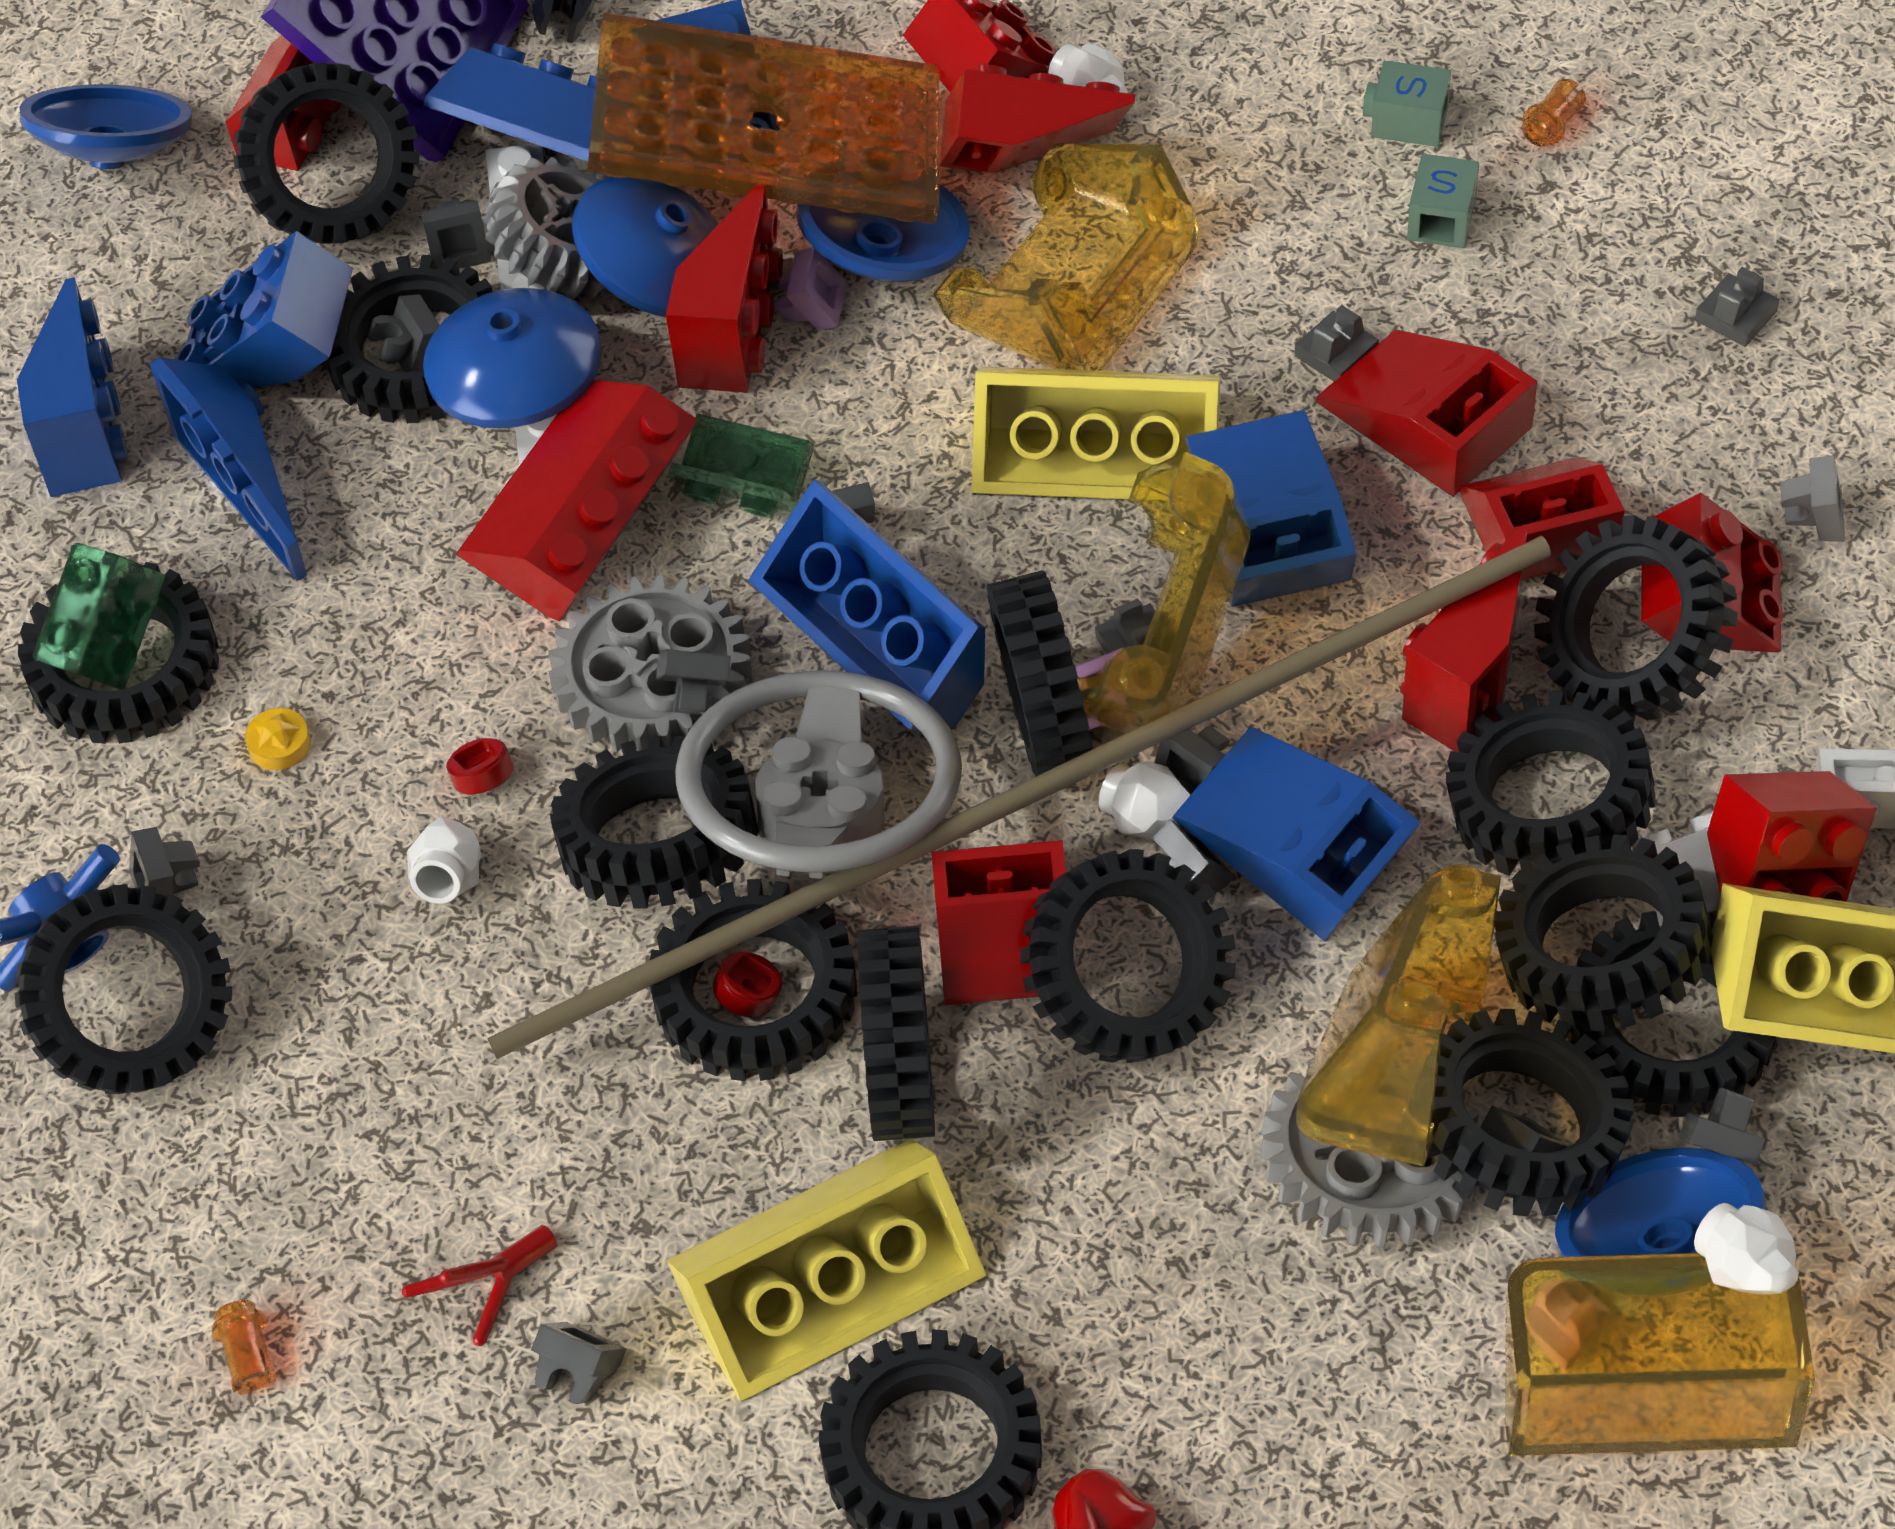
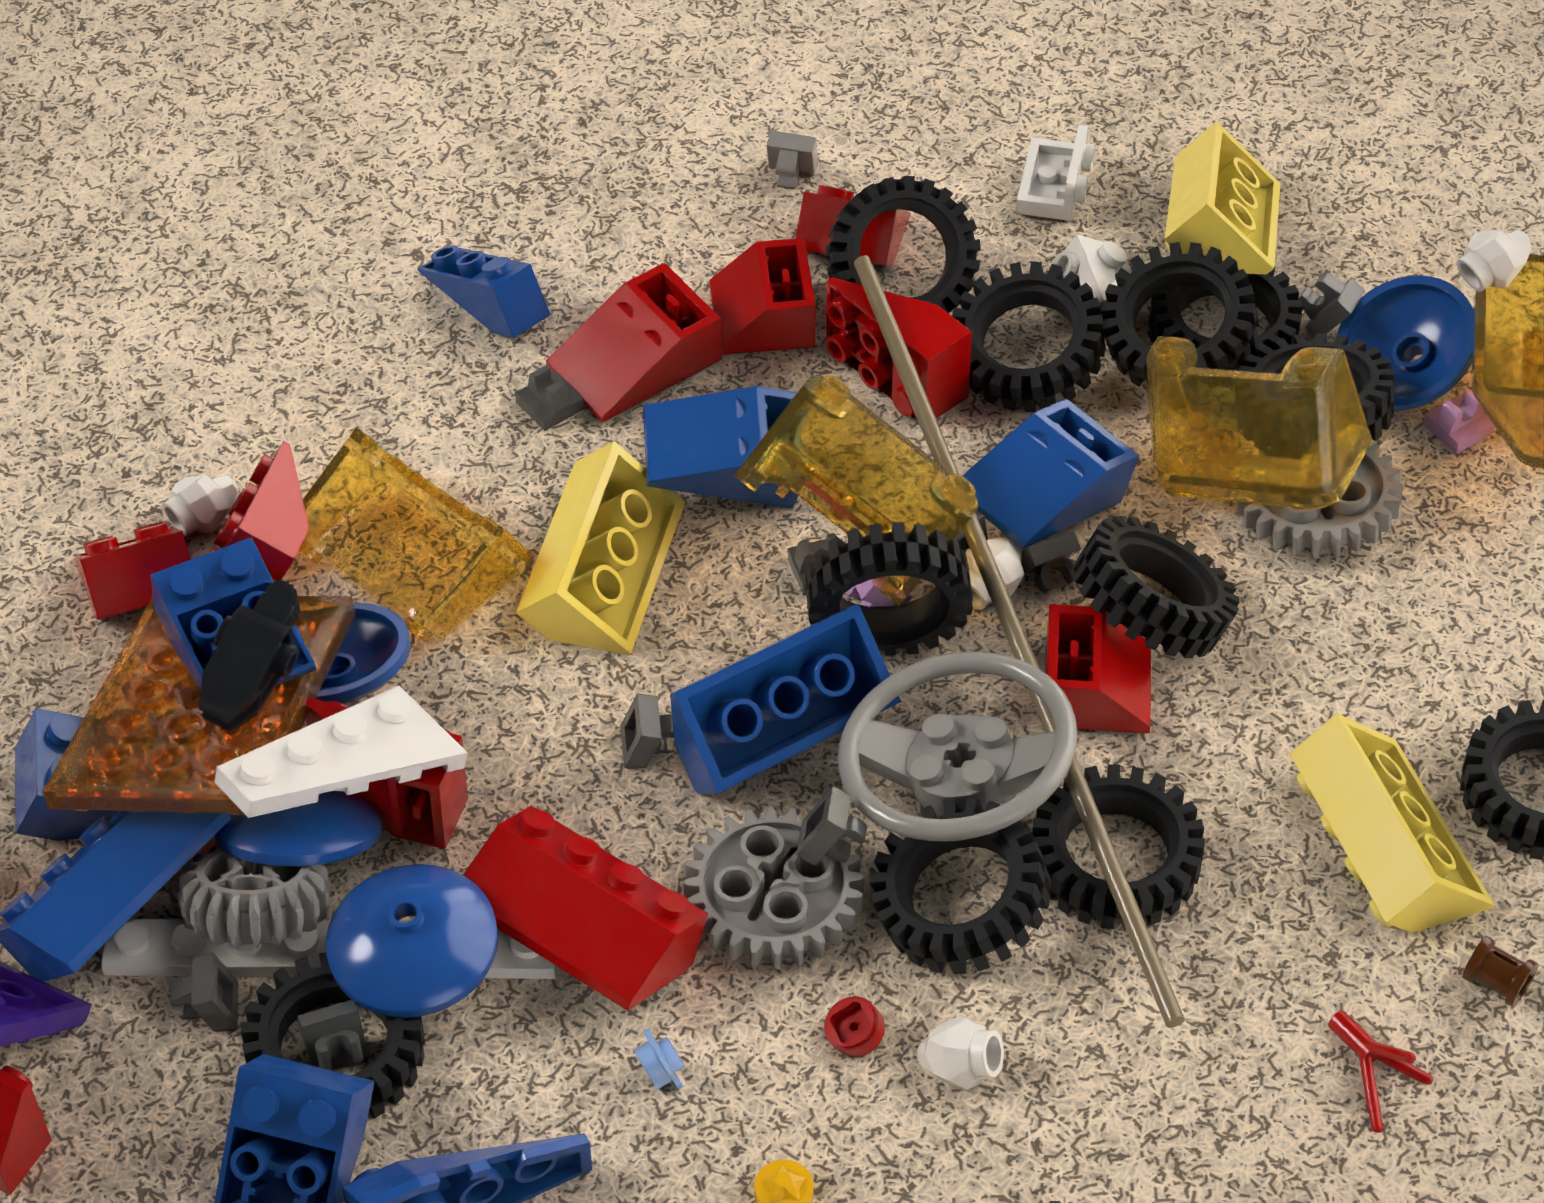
camera: 85 degrees left, 5 degrees down
(393, 140) = (74, 1093): black tyre -> none
(406, 594) = (660, 1061): none -> light blue plate
(579, 1352) = (1457, 999): dark grey tile -> none
(633, 1378) = (1500, 971): none -> reddish brown bush
(677, 225) = (341, 753): none -> white wing
(743, 464) = (577, 788): clear green bracket -> none
(747, 984) = (1129, 852): red tile -> none
(761, 104) = (250, 658): none -> black hinge
(849, 103) = (202, 592): none -> blue slope
(895, 1033) = (1222, 686): black tyre -> none
(1408, 103) = (312, 307): sand green brick -> none
(1443, 200) = (425, 305): sand green brick -> none
(1487, 249) = (489, 287): none -> blue slope
(1546, 121) = (356, 235): clear orange pin -> none
(1738, 307) = (585, 169): dark grey tile -> none
(1789, 833) = (1116, 209): red slope -> none

